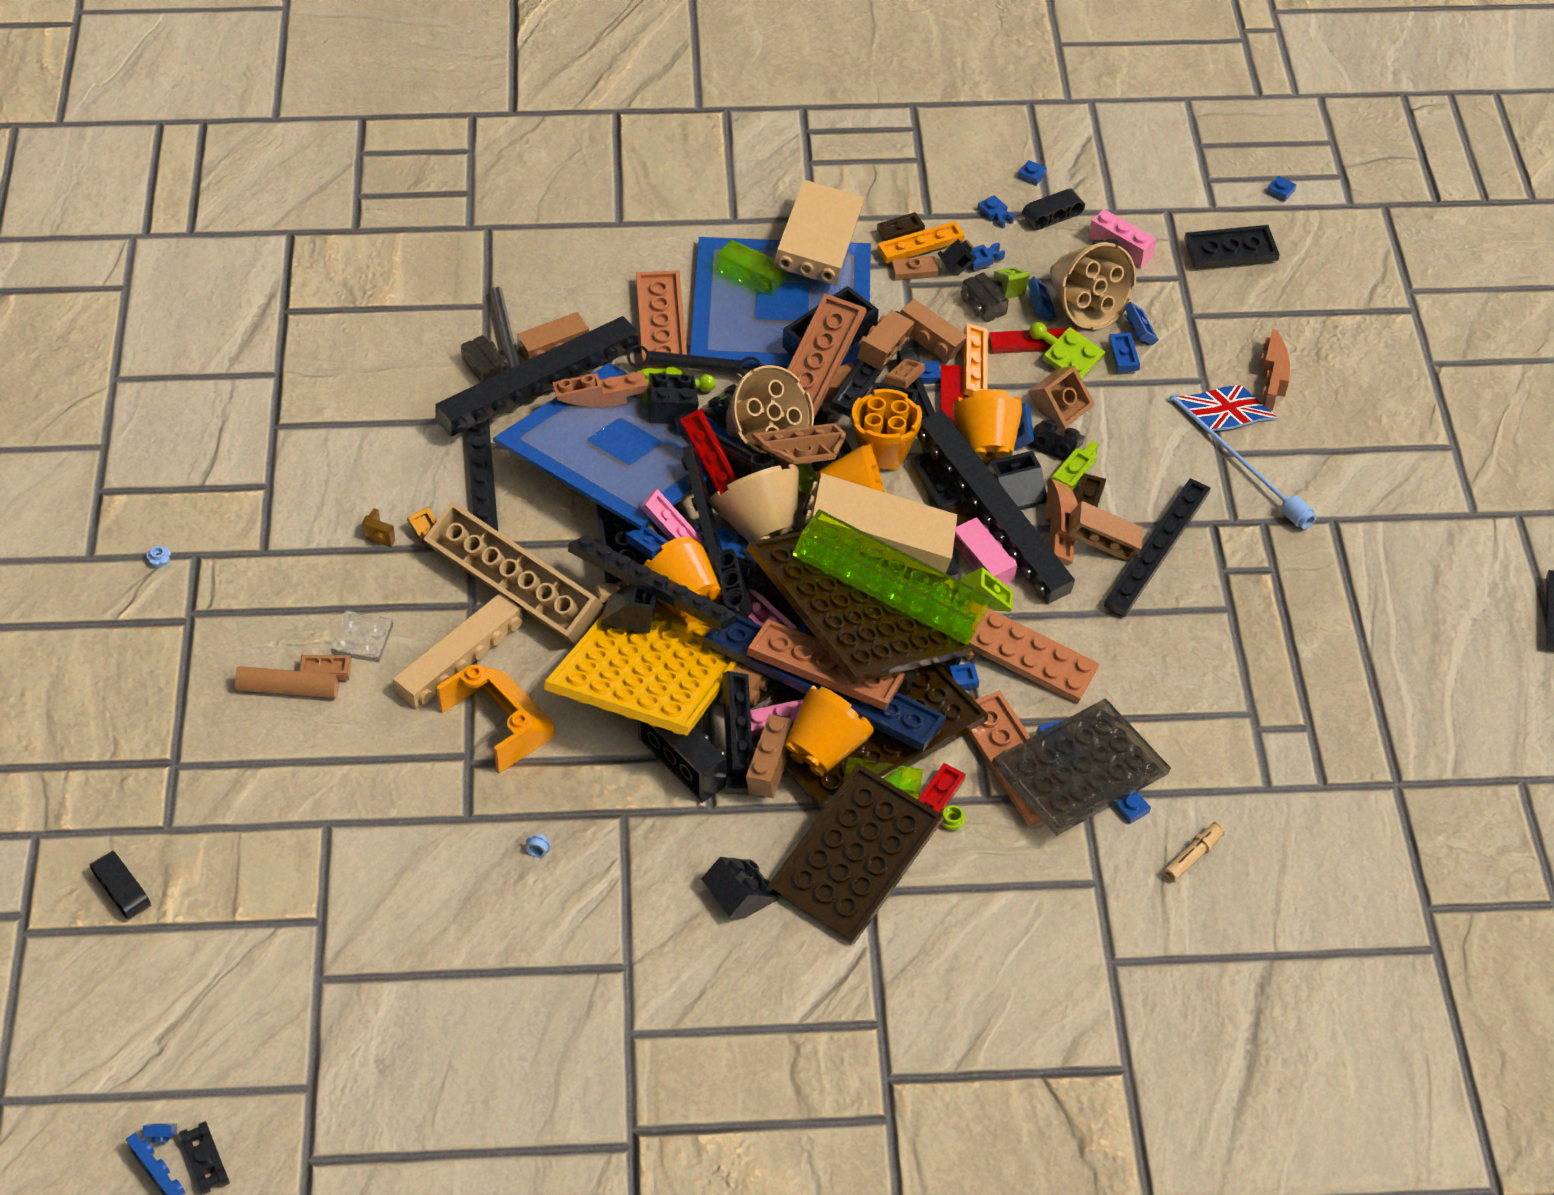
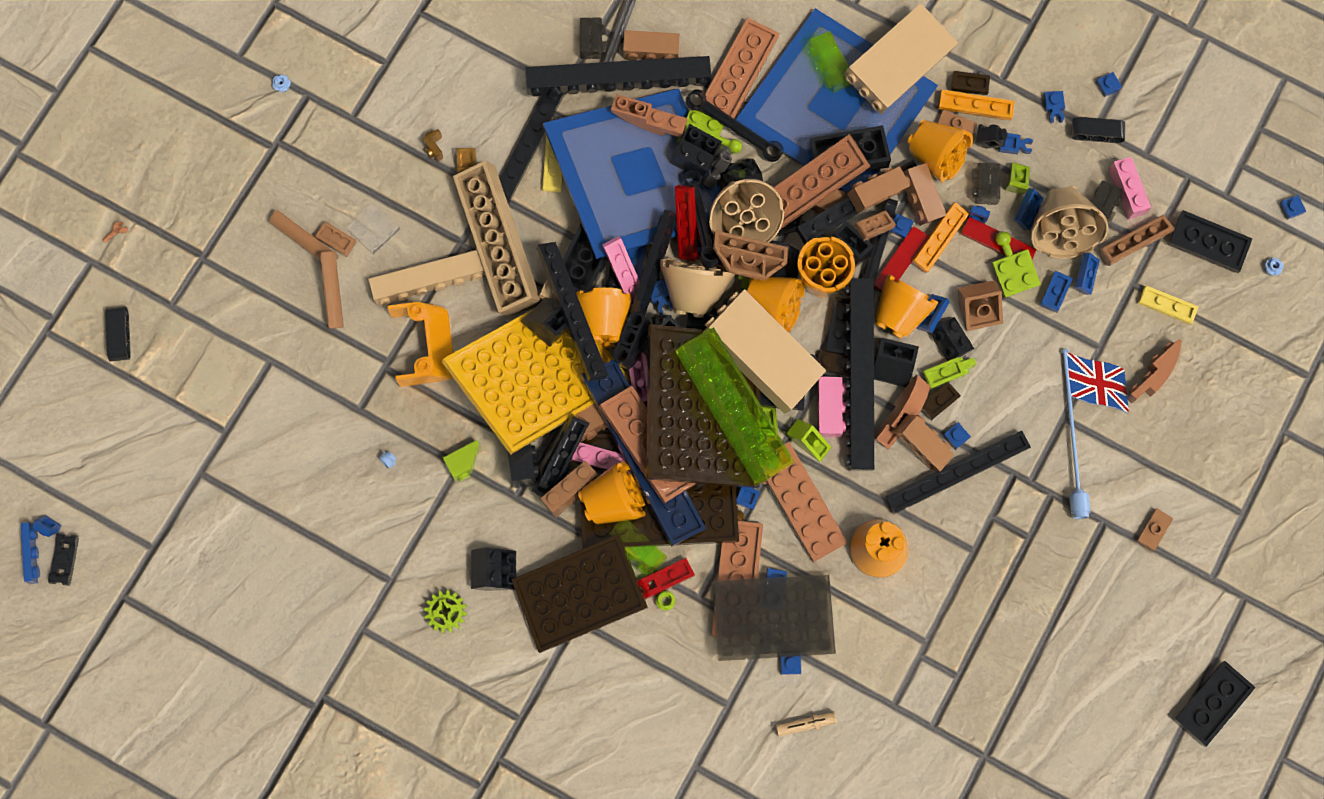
camera: 30 degrees right, 25 degrees up
(47, 780) = (116, 229): none -> nougat hand
(356, 711) = (331, 290): none -> medium nougat brick
(524, 488) = (552, 174): none -> light yellow tile
(625, 802) = (463, 461): none -> lime slope
(646, 541) = (593, 273): blue plate -> none
(706, 396) = (718, 166): none -> flat silver bar
(716, 957) = (436, 614): none -> lime gear
(918, 279) = (940, 148): none -> light orange cone
(997, 323) = (979, 213): none -> blue plate
(1131, 514) = (956, 436): none -> blue plate
(1137, 645) = (870, 556): none -> light orange cone
(1163, 277) = (1136, 240): none -> medium nougat brick
(1236, 315) = (1168, 305): none -> light yellow tile
(1305, 240) = (1270, 269): none -> light blue plate
(1386, 499) = (1154, 529): none -> medium nougat plate

